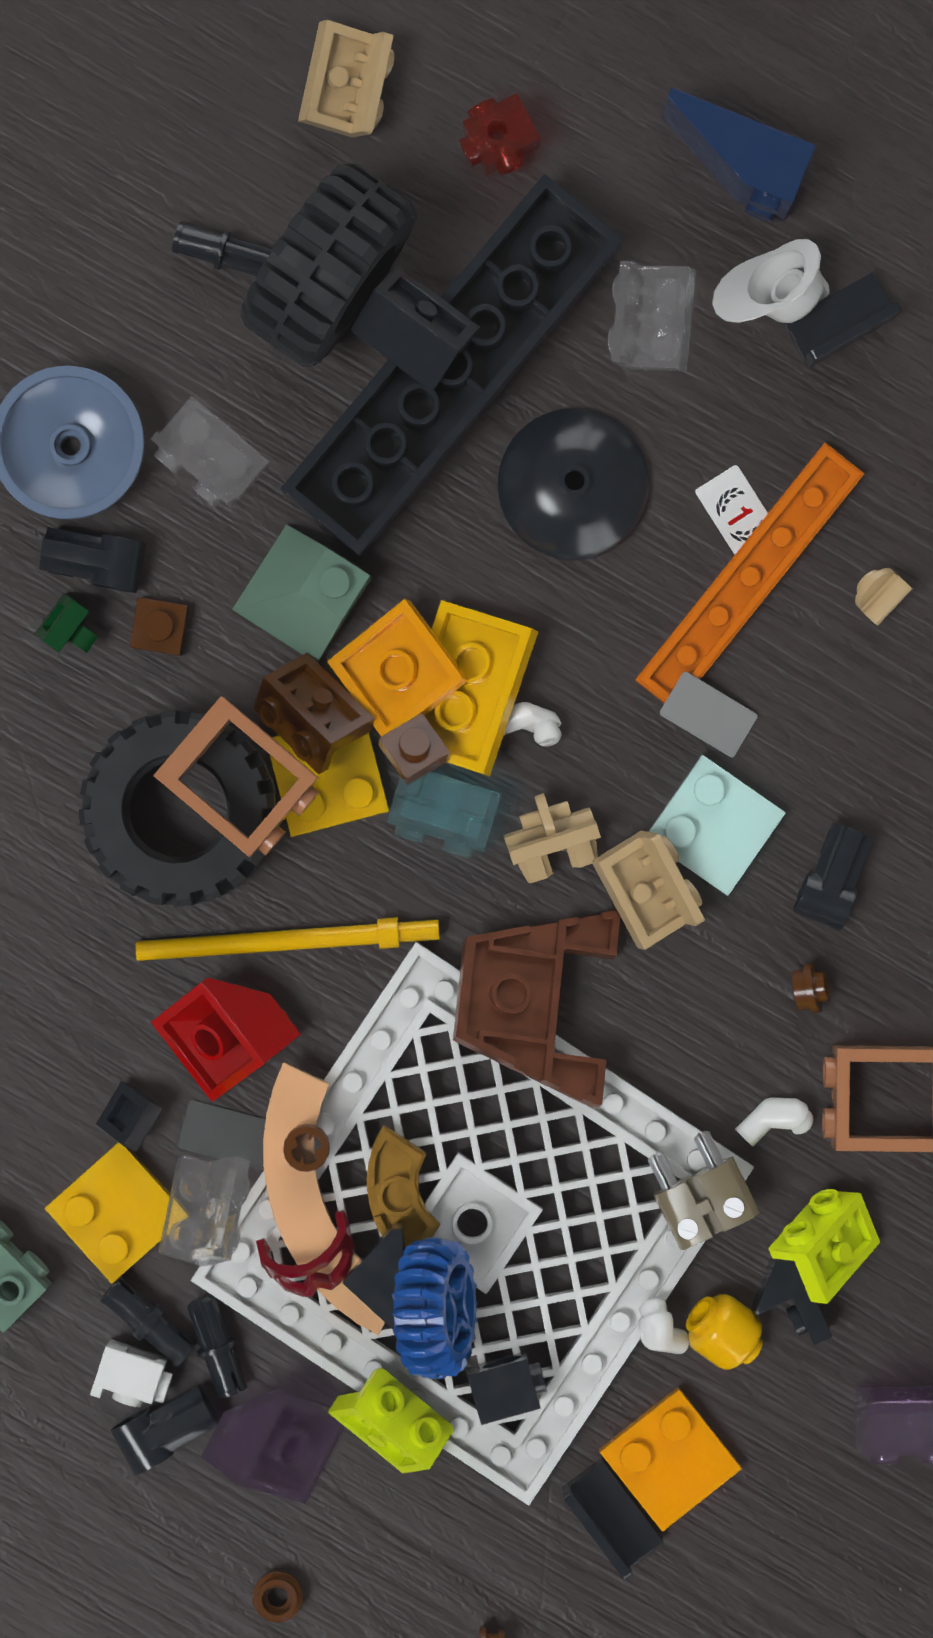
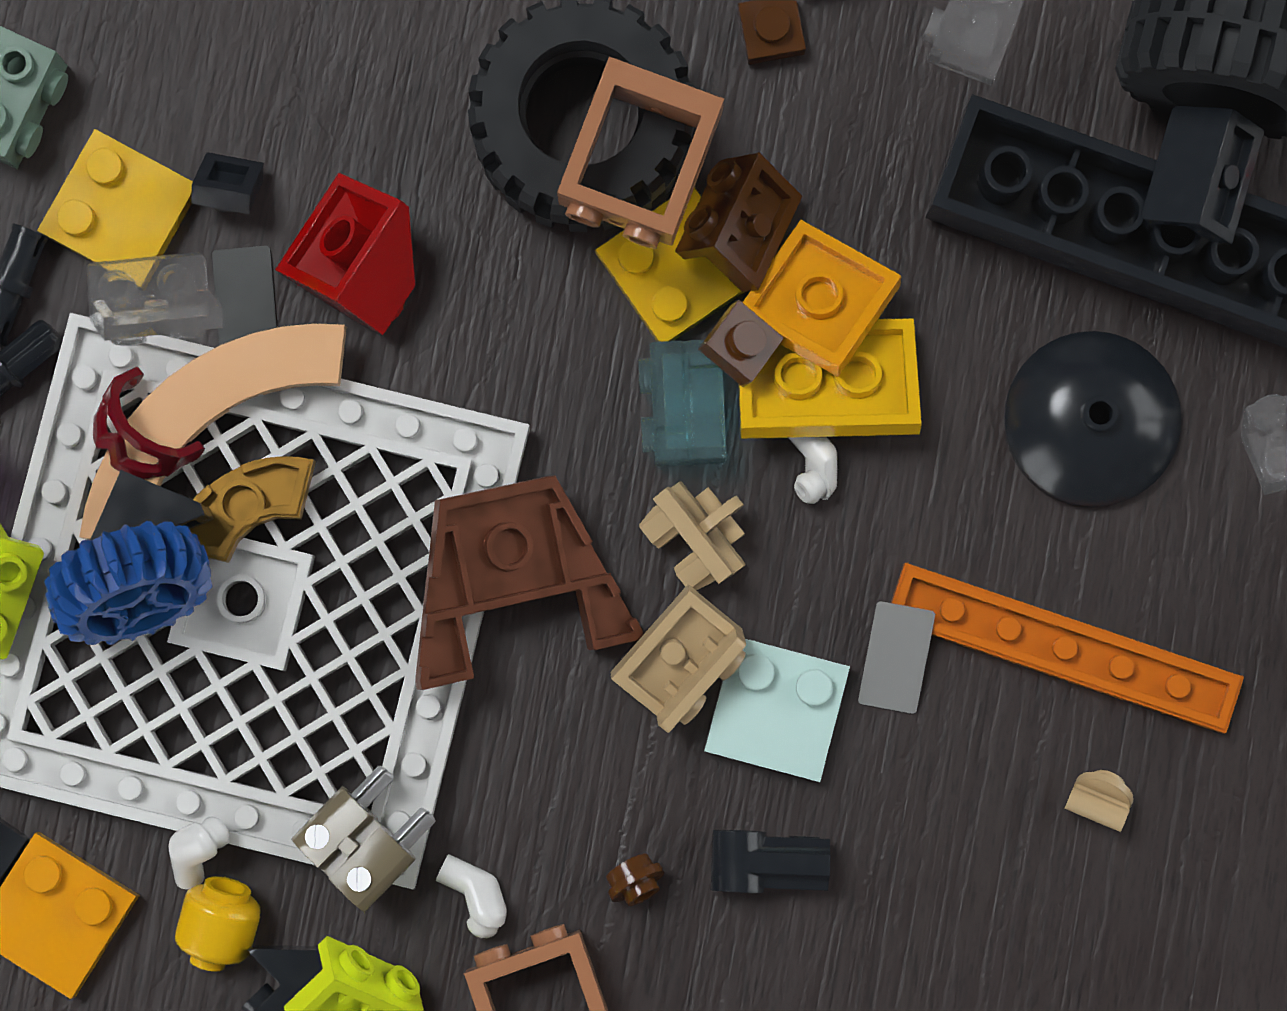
camera: 65 degrees right, 5 degrees down
(292, 1142) = (260, 363): reddish brown bush -> none
(302, 593) = (864, 169): sand green slope -> none
(386, 933) = (526, 390): yellow bar -> none
(506, 1387) = (69, 698): black brick -> none
(732, 506) = (1134, 601): white sticker -> none

